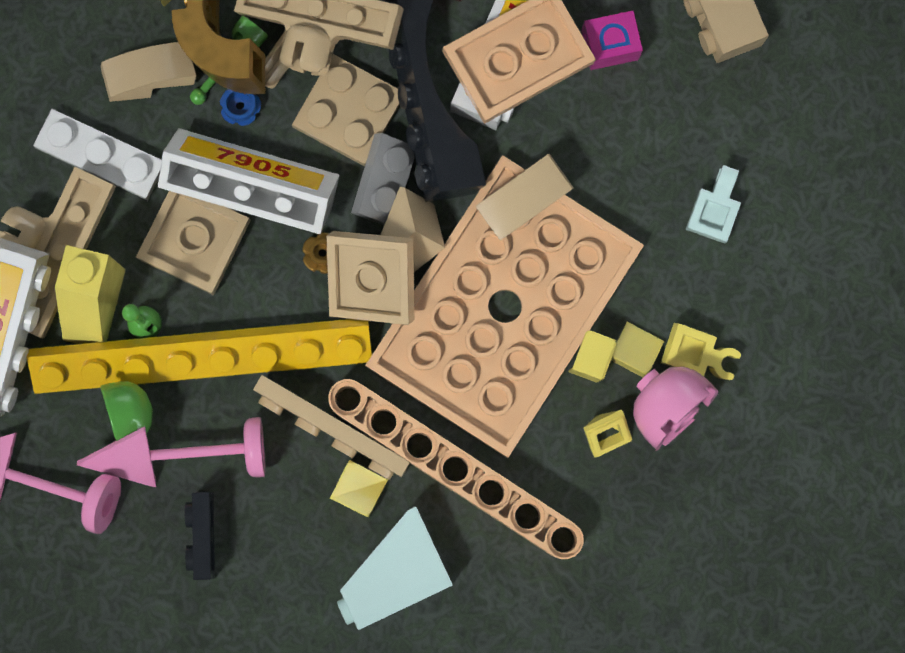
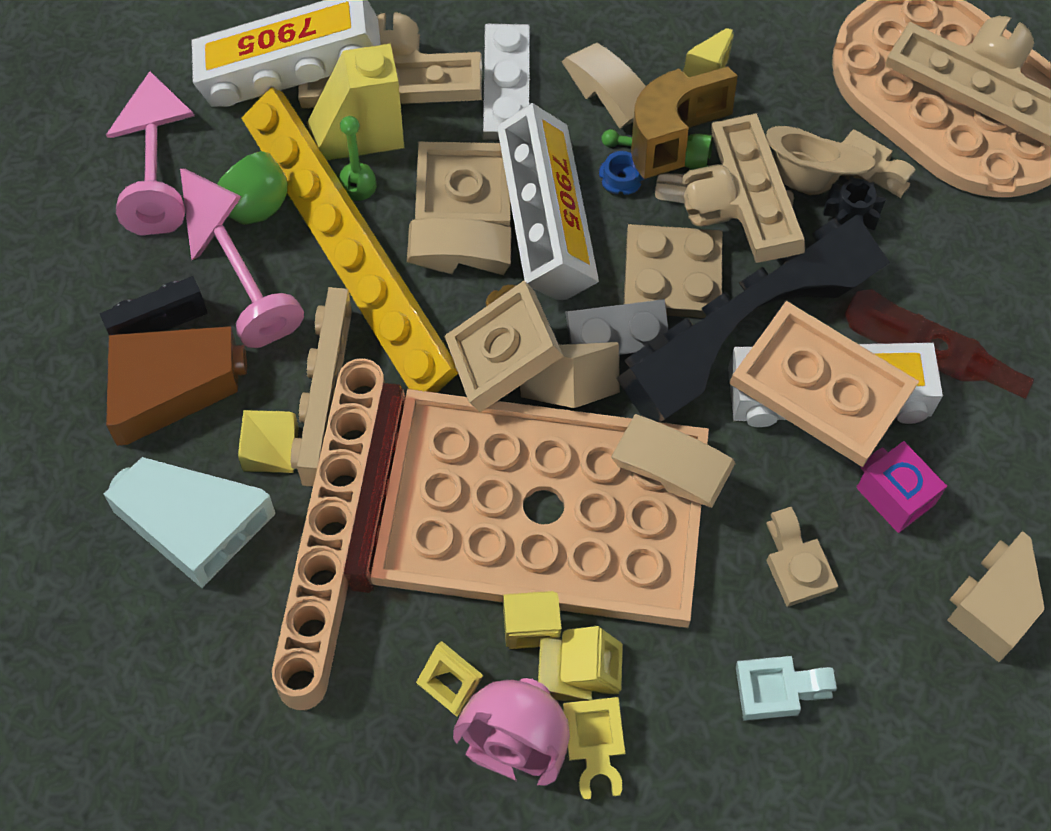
camera: 70 degrees right, 20 degrees down
(249, 267) = (450, 241): none -> tan slope
(267, 545) = (168, 377): none -> dark orange slope
(436, 422) = (374, 489): none -> clear red tile
(635, 144) = (797, 567): none -> tan plate
(639, 328) = (591, 660): none -> light yellow slope

